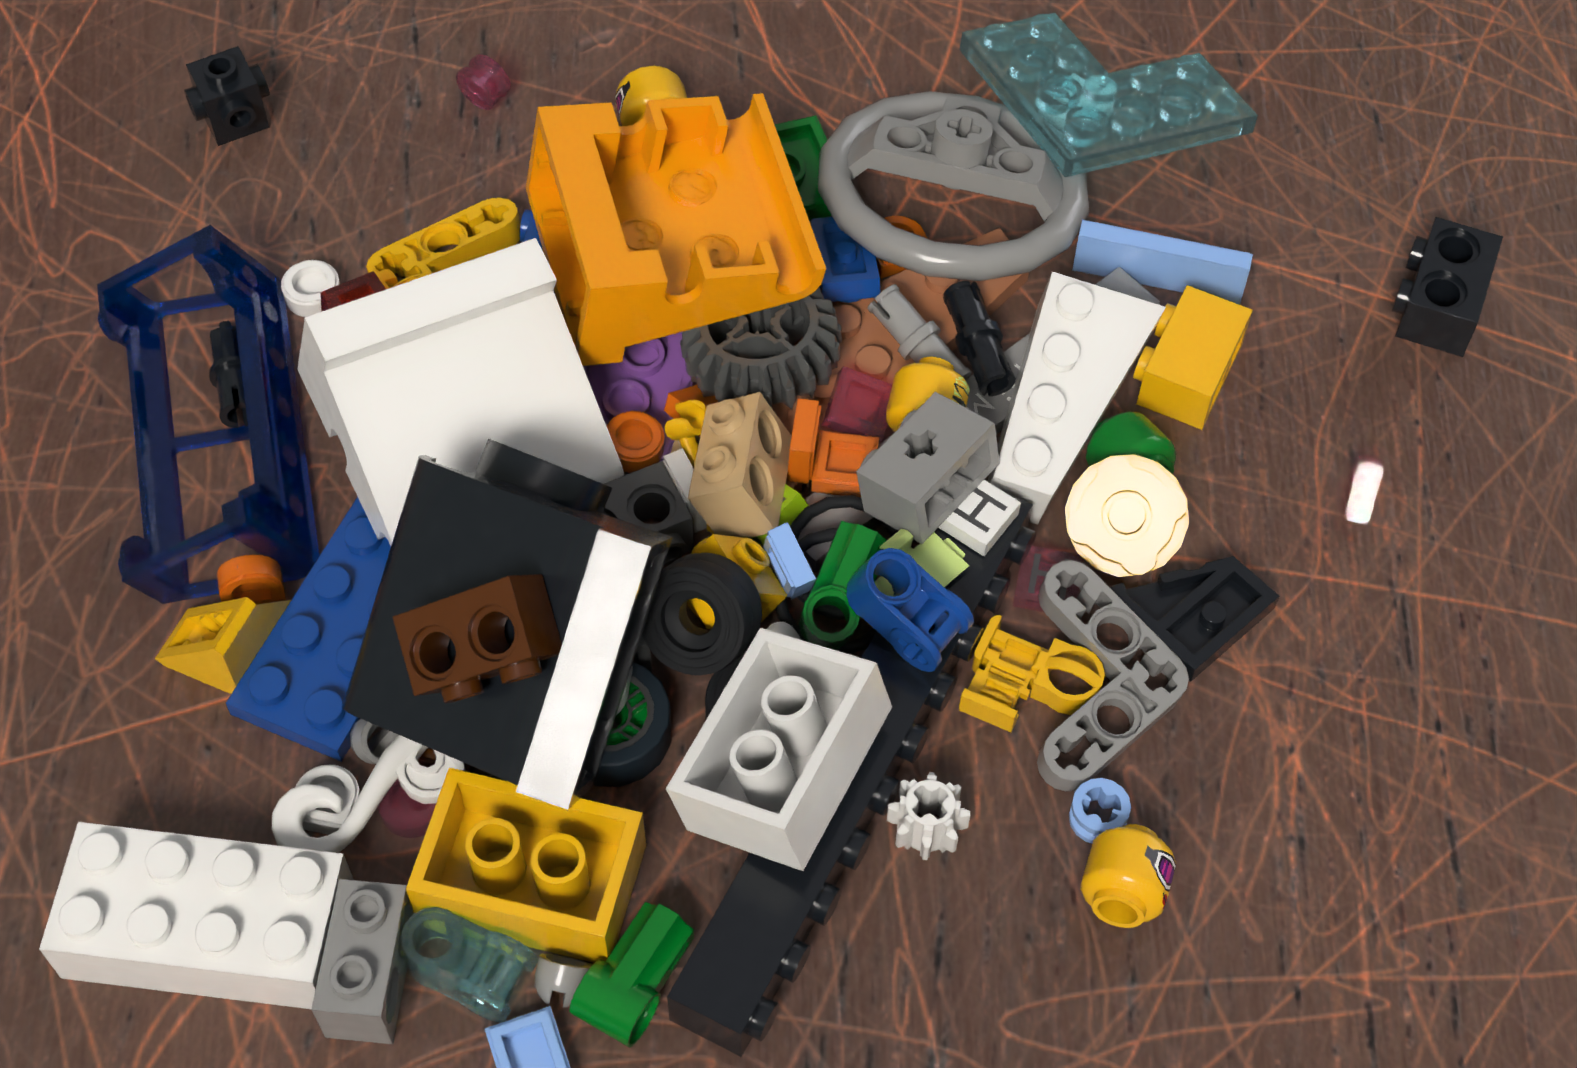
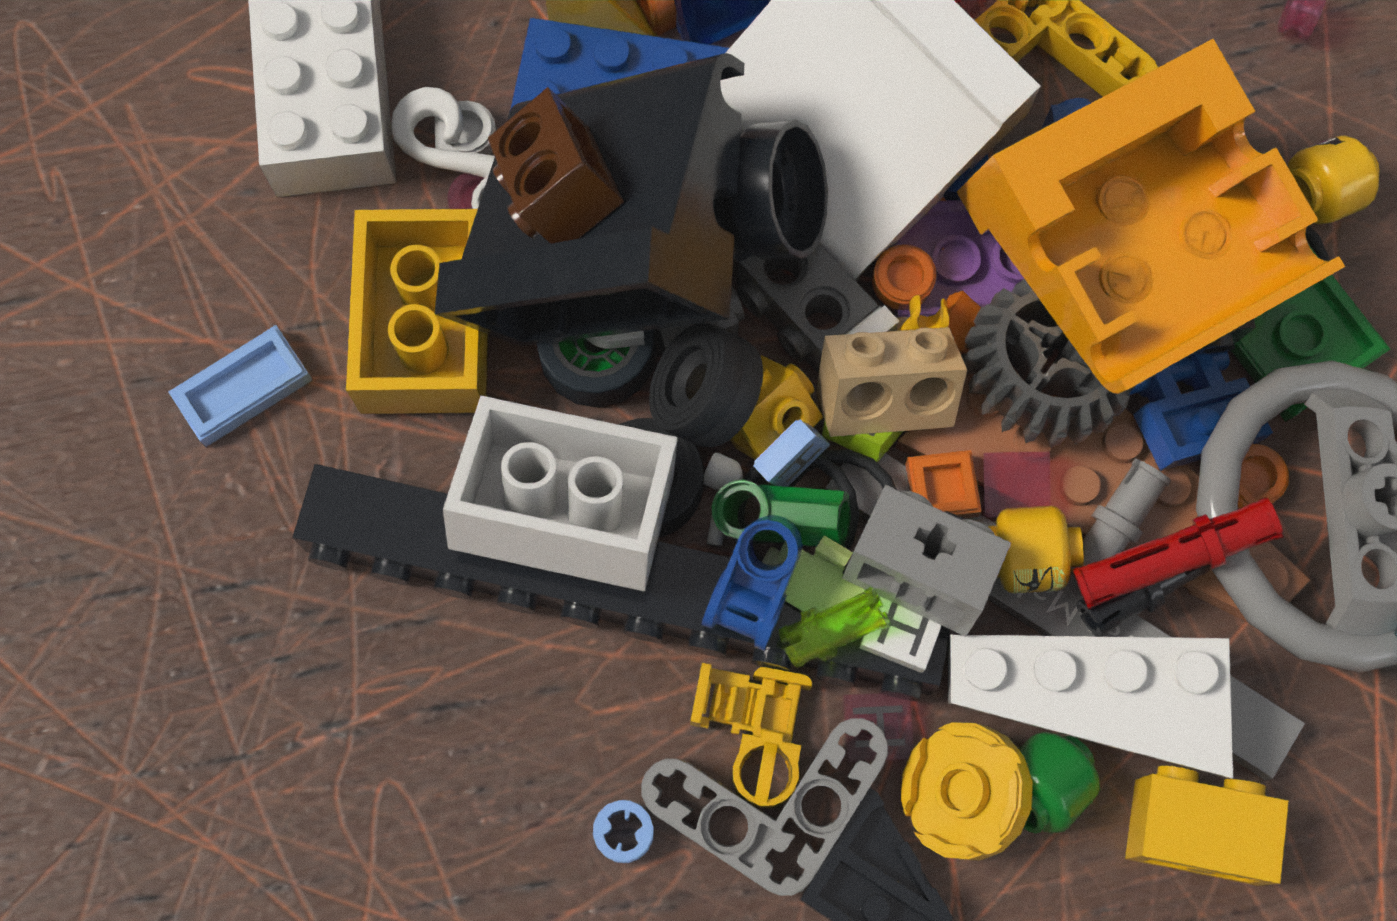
camera: 75 degrees right, 15 degrees up
(363, 962) = (302, 205): light grey brick -> none
(476, 970) = (319, 296): clear light blue piece -> none
(559, 975) = (325, 374): light grey hinge -> none
(624, 990) = (333, 429): green piece -> none
(804, 441) = (948, 434): orange tile -> none
(928, 799) = (567, 643): white gear -> none
(965, 267) = (1189, 548): none -> red pin
(967, 557) = (826, 630): none -> clear neon green pin
(1128, 876) = (549, 872): yellow head -> none
(1162, 260) = (1327, 770): light blue tile -> none

